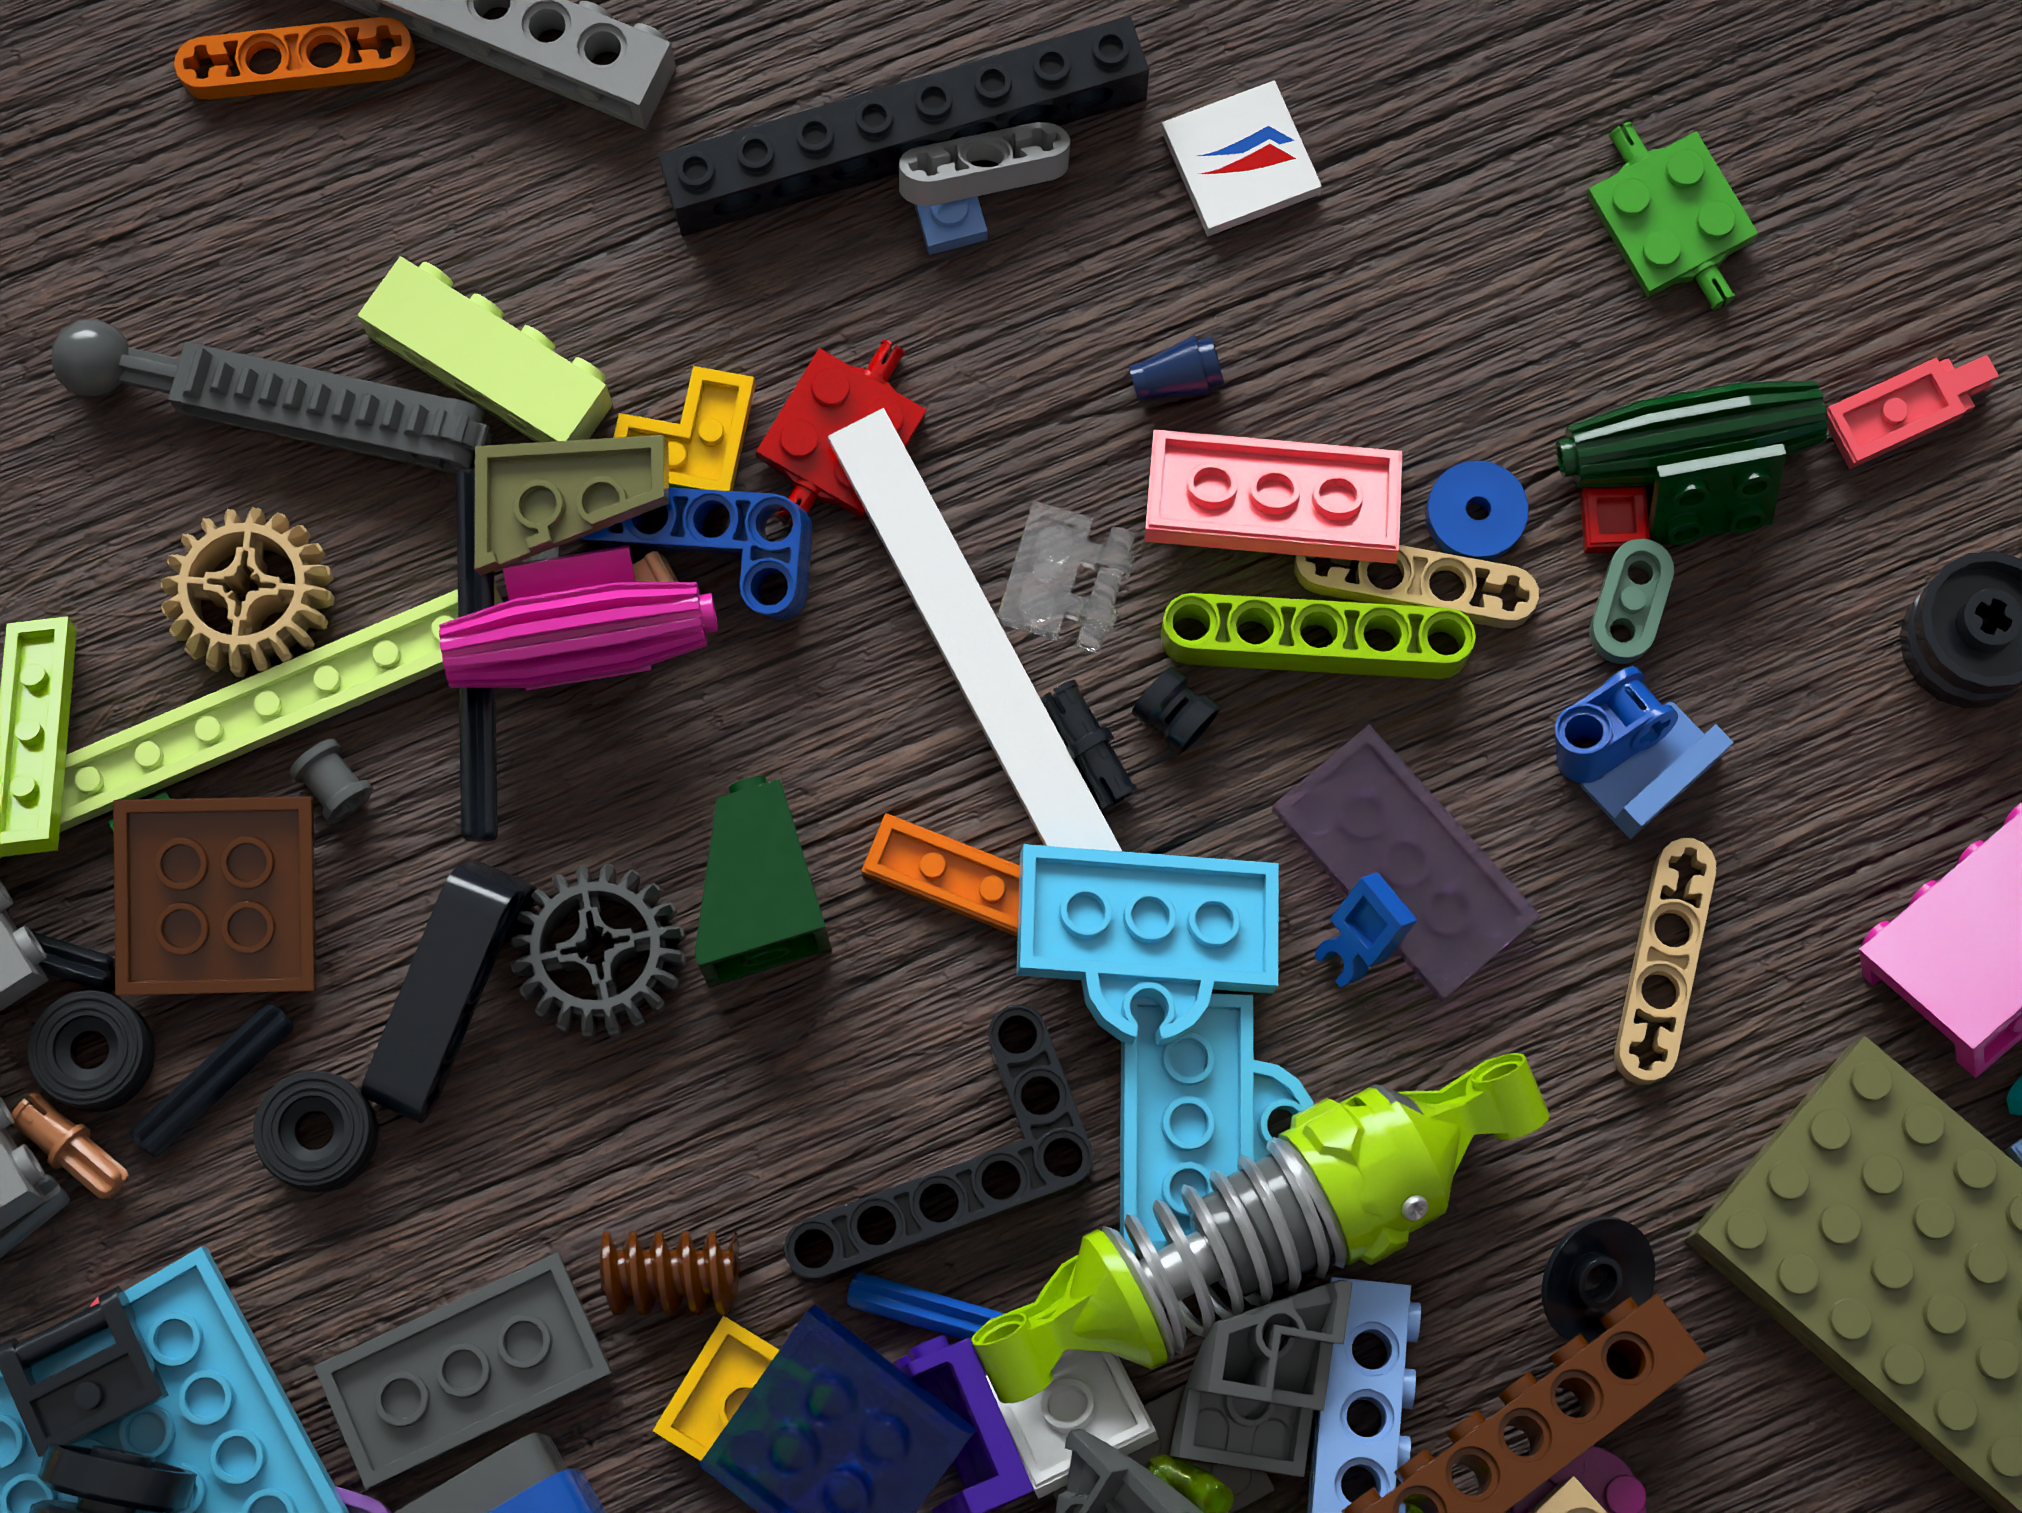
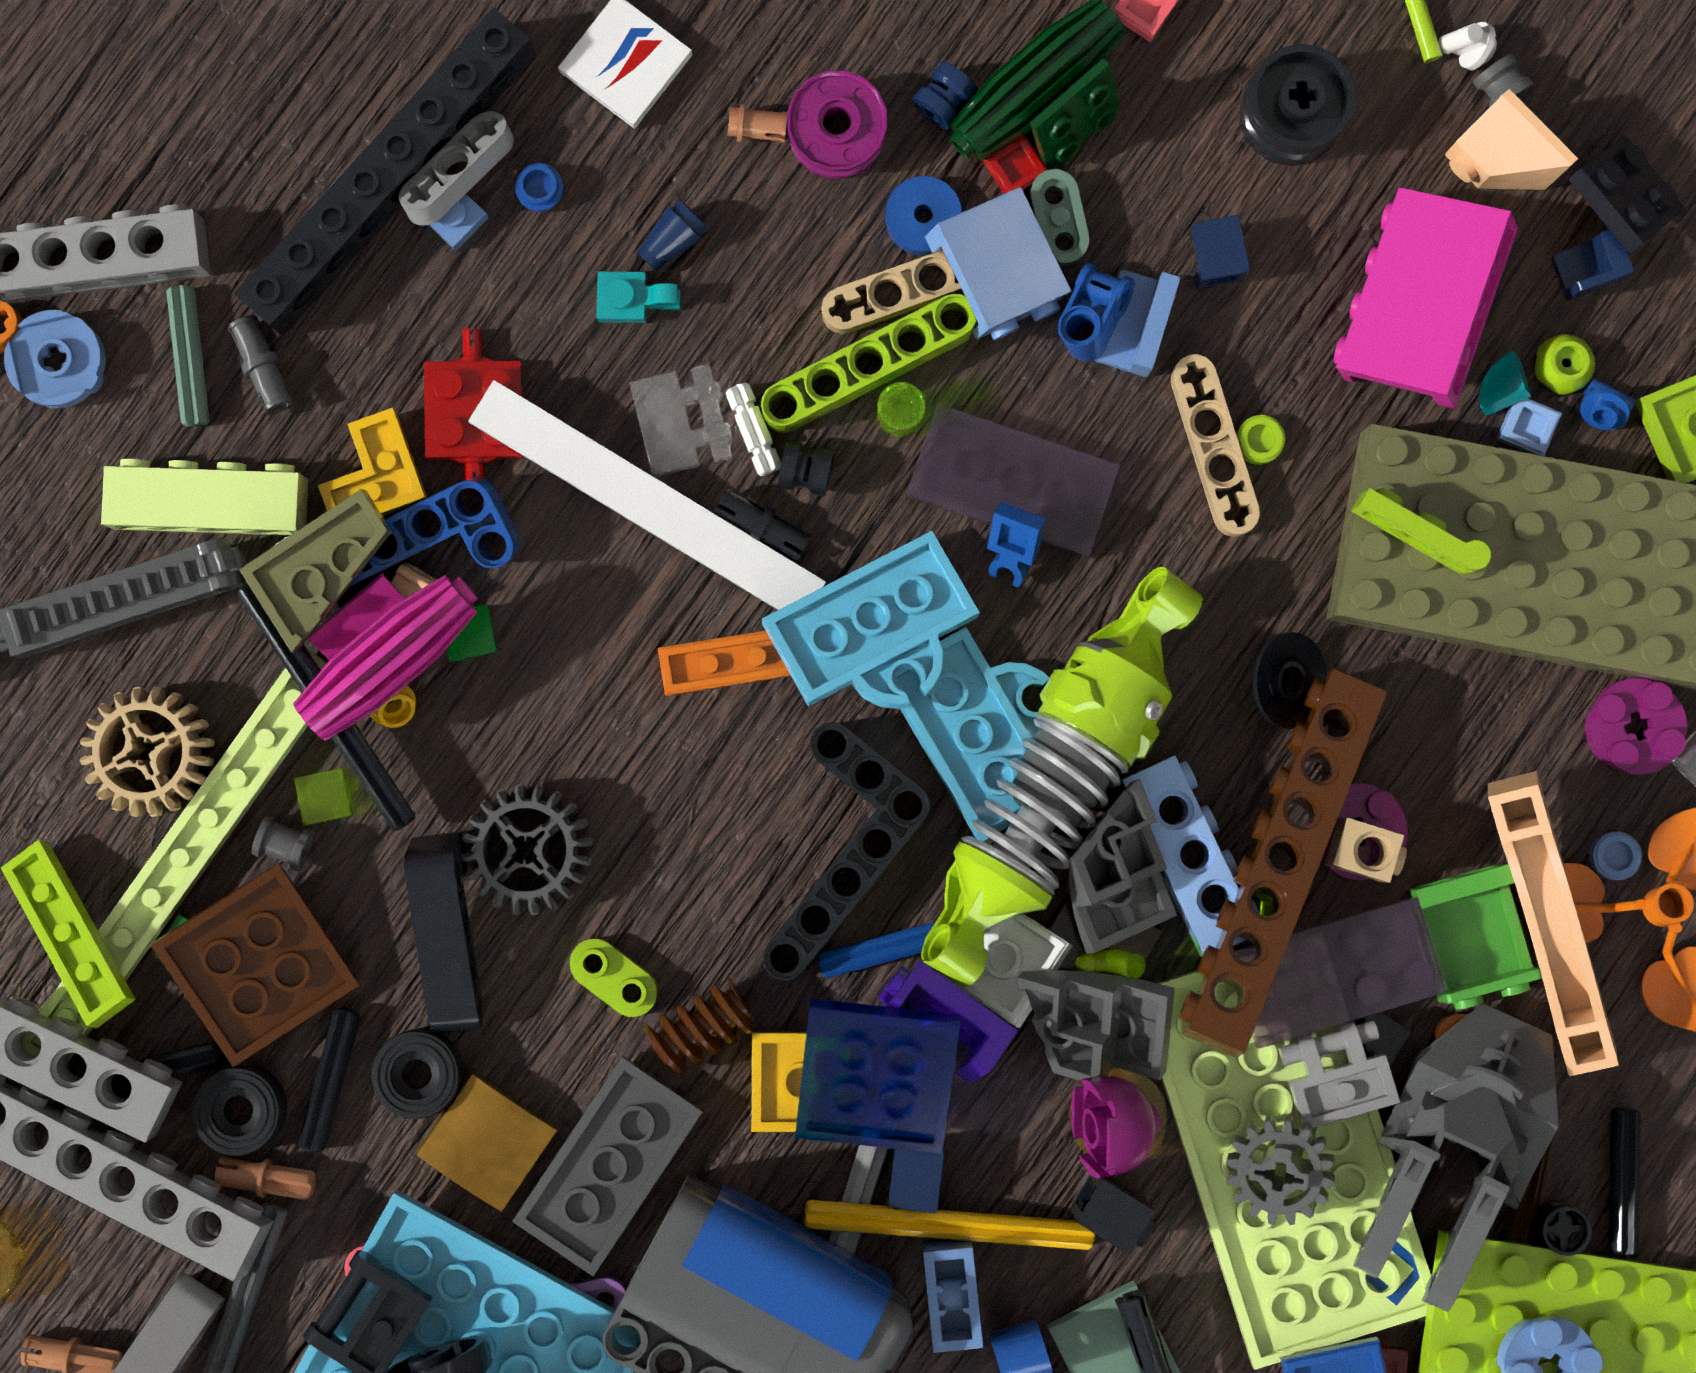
camera: 30 degrees left, 10 degrees up
(342, 1257) = (486, 1141): none -> pearl gold slope
(409, 758) = (324, 796): none -> clear neon green tile
(428, 152) = (33, 343): none -> medium blue plate
(550, 714) = (399, 711): none -> yellow plate
(565, 197) = (187, 356): none -> sand green axle
(605, 1156) = (613, 977): none -> lime plate
(639, 251) = (260, 364): none -> dark grey pin
(686, 679) = (475, 639): none -> green tile
(756, 888) = (606, 748): dark green slope -> none
(1062, 237) = (539, 187): none -> blue plate
(1090, 409) = (626, 297): none -> teal plate
(1142, 634) = (753, 429): none -> white axle
(1274, 496) = (785, 285): tile -> none
(1315, 717) = (900, 418): none -> clear neon green wheel
(1346, 306) = (757, 124): none -> nougat pin
(1443, 320) = (844, 96): none -> magenta wheel
(1534, 610) = (1001, 263): none -> medium blue panel
(1578, 392) = (944, 95): none -> dark blue wheel
(1723, 985) = (1261, 439): none -> lime tile
(1795, 743) = (1219, 252): none -> dark blue panel
(1853, 1190) = (1421, 532): none -> lime plate

